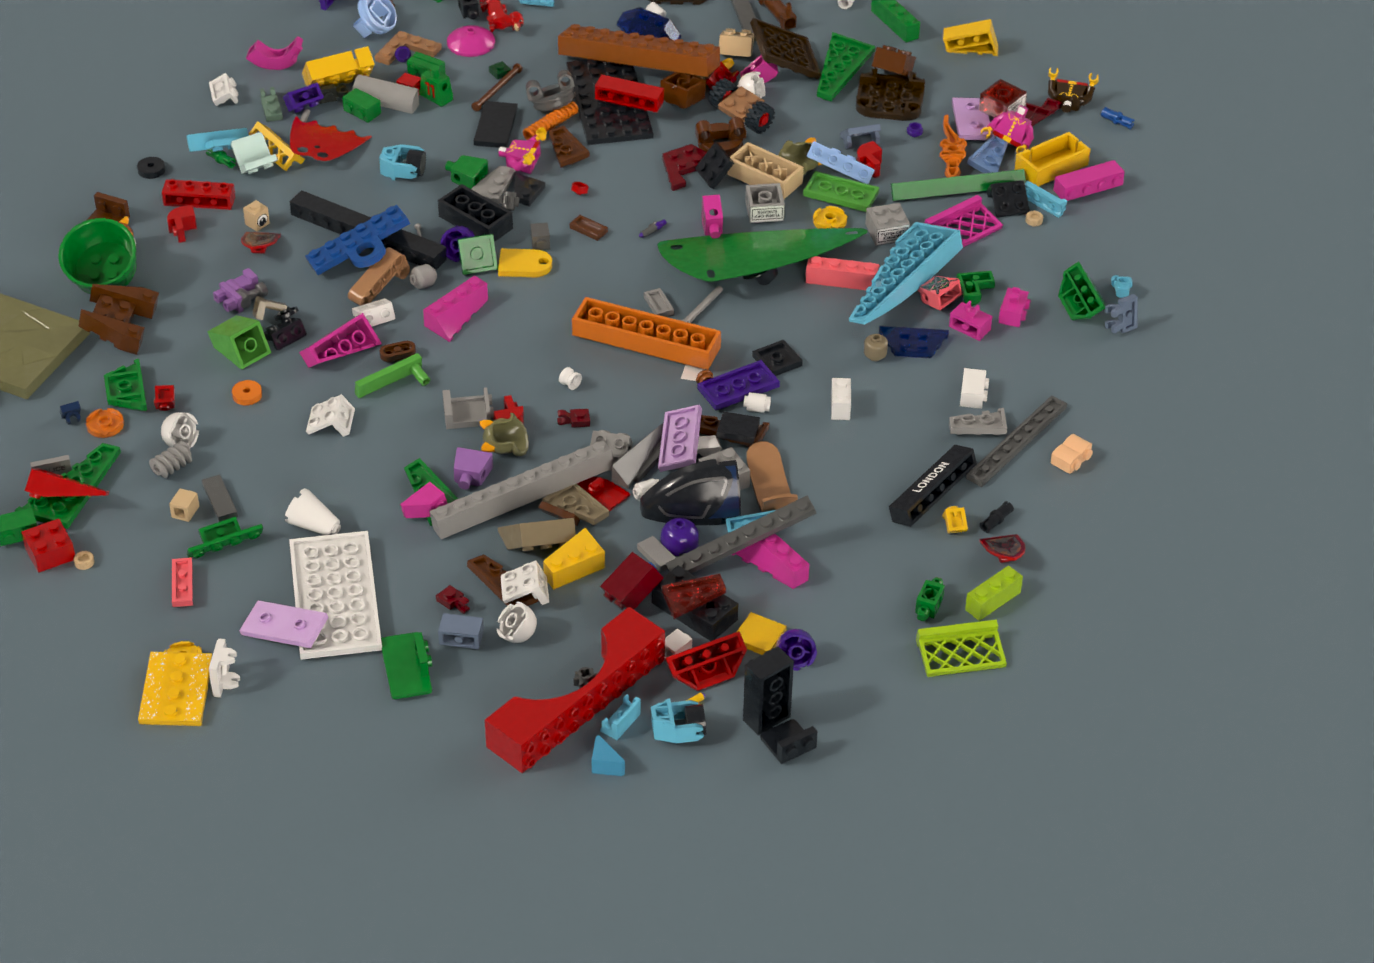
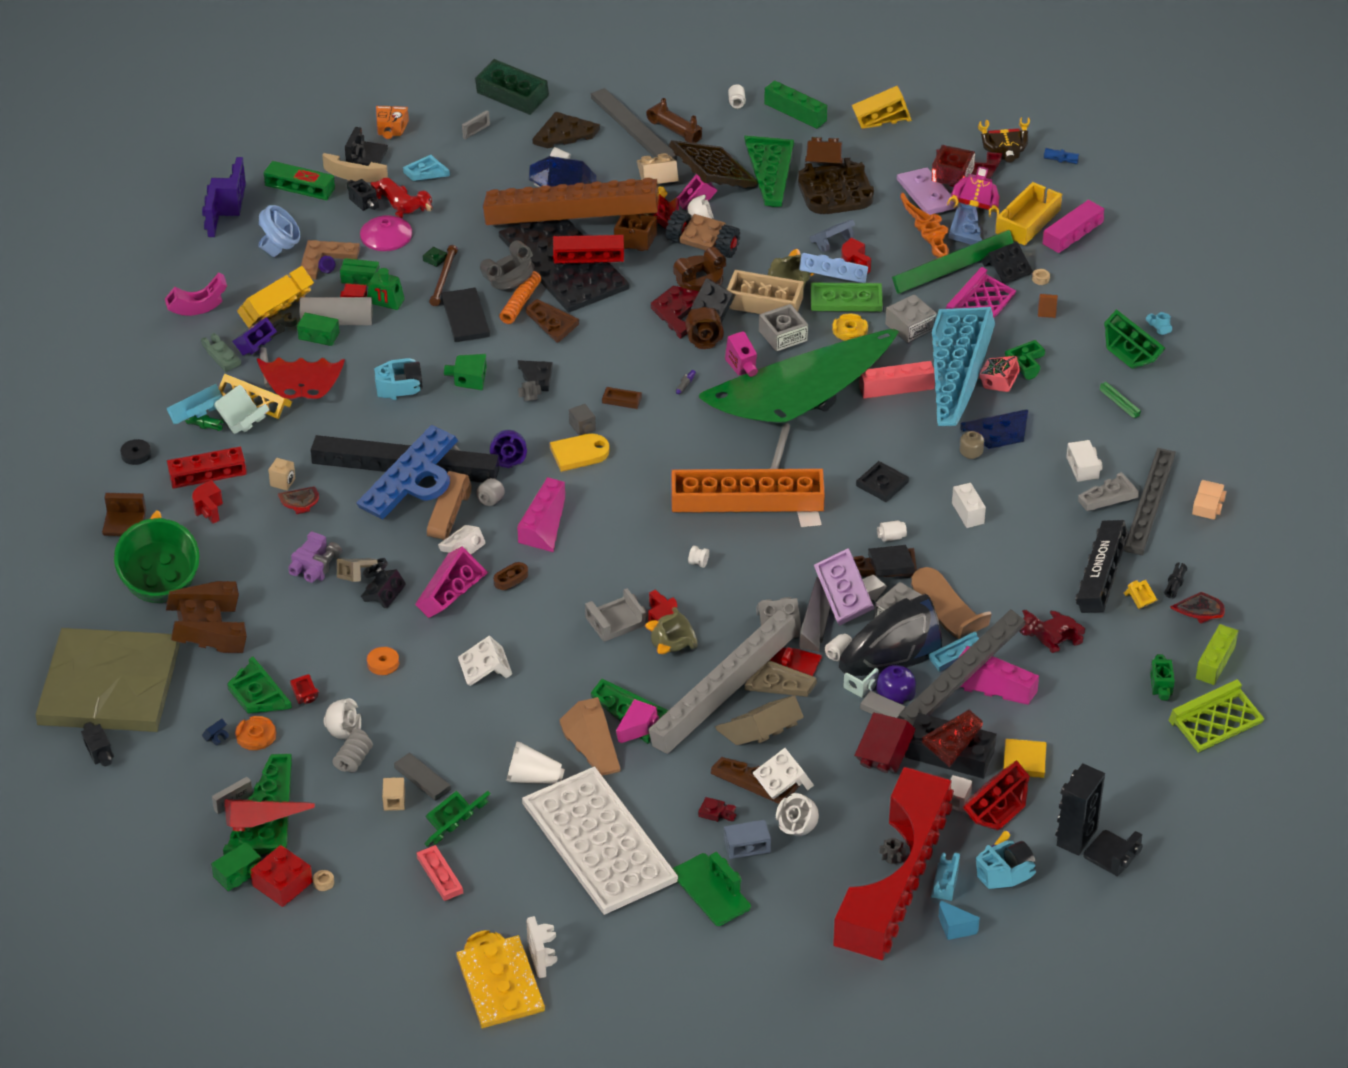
camera: 20 degrees left, 0 degrees up
(223, 89) = (161, 349): white bracket -> none
(240, 340) = (346, 608): bright green slope -> none
(284, 624) = (570, 884): lavender plate -> none
(382, 504) = (590, 734): none -> medium nougat wedge
(391, 374) = (526, 594): bright green piece -> none
(471, 467) = (655, 673): medium lavender torso -> none
(475, 212) = (502, 411): black brick -> none
(477, 254) = (534, 454): plate -> none
(495, 183) = (501, 379): light grey wing -> none
(523, 154) = (514, 337): dark pink torso -> none
(557, 512) = (767, 694): reddish brown tile -> none
(574, 560) = (813, 735): yellow wedge -> none
(576, 417) = (727, 594): dark red plate -> none
(579, 188) = (590, 359): red tile -> none
(650, 529) = (864, 686): none -> light aqua bracket
(658, 302) = (736, 456): light grey tile -> none
(692, 185) = (704, 327): none -> reddish brown brick
(704, 375) = (827, 520): dark orange plate -> none
(736, 384) = (862, 518): dark purple plate -> none
(798, 646) = (1069, 757): dark purple cylinder -> none
(851, 529) = (1053, 630): none -> dark red animal
(915, 129) = (879, 216): dark purple plate -> none
(970, 320) = (1043, 394): dark pink brick -> none
(1014, 307) = (1075, 370): dark pink brick -> none
(1023, 244) = (1047, 305): none -> dark orange slope
(1042, 344) = (1120, 400): none -> green axle
(1045, 199) = (1043, 255): medium azure hinge -> none
(1126, 312) = (1183, 350): sand blue plate -> none

